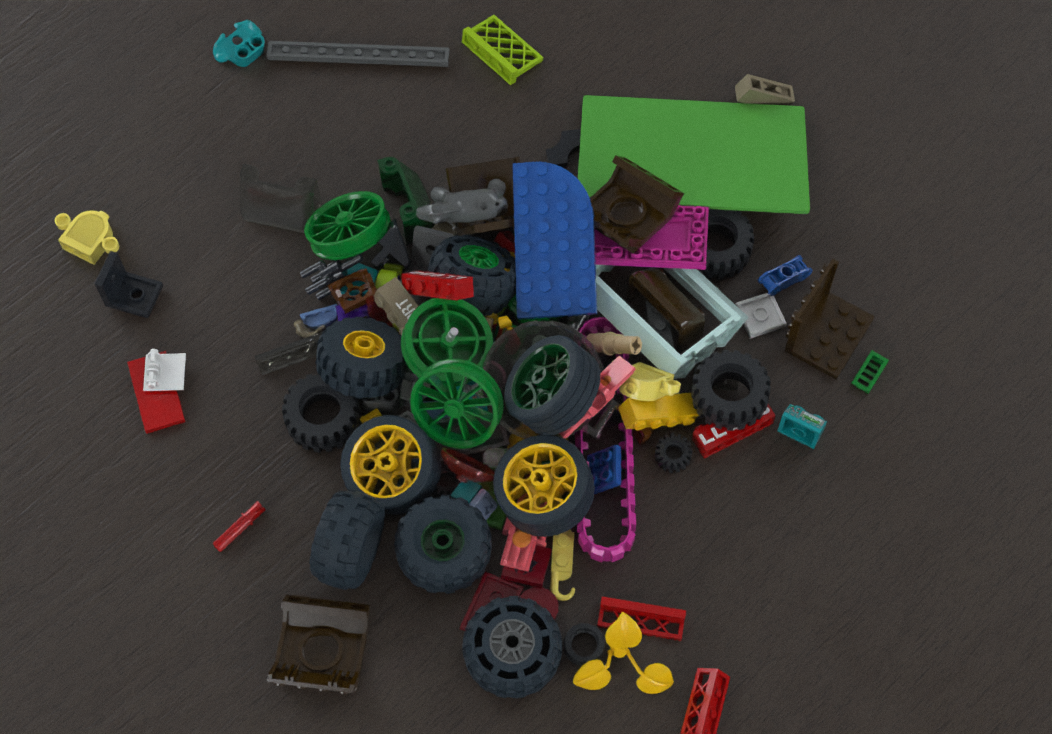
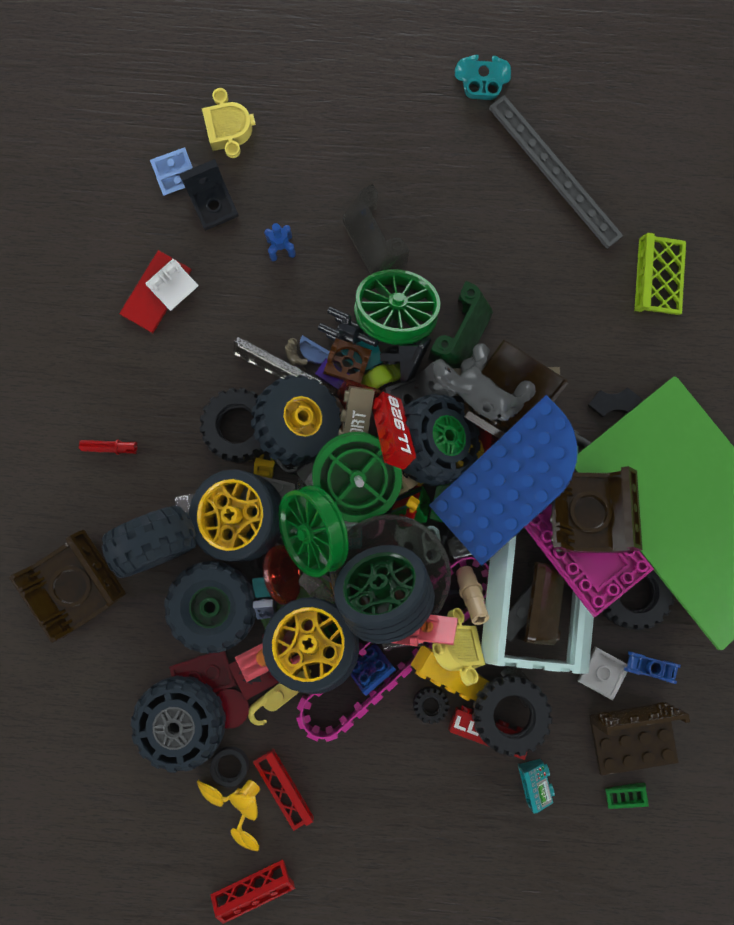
camera: 45 degrees right, 20 degrees up
(79, 303) = (168, 169): none -> light blue slope
(213, 266) = (279, 240): none -> blue plant

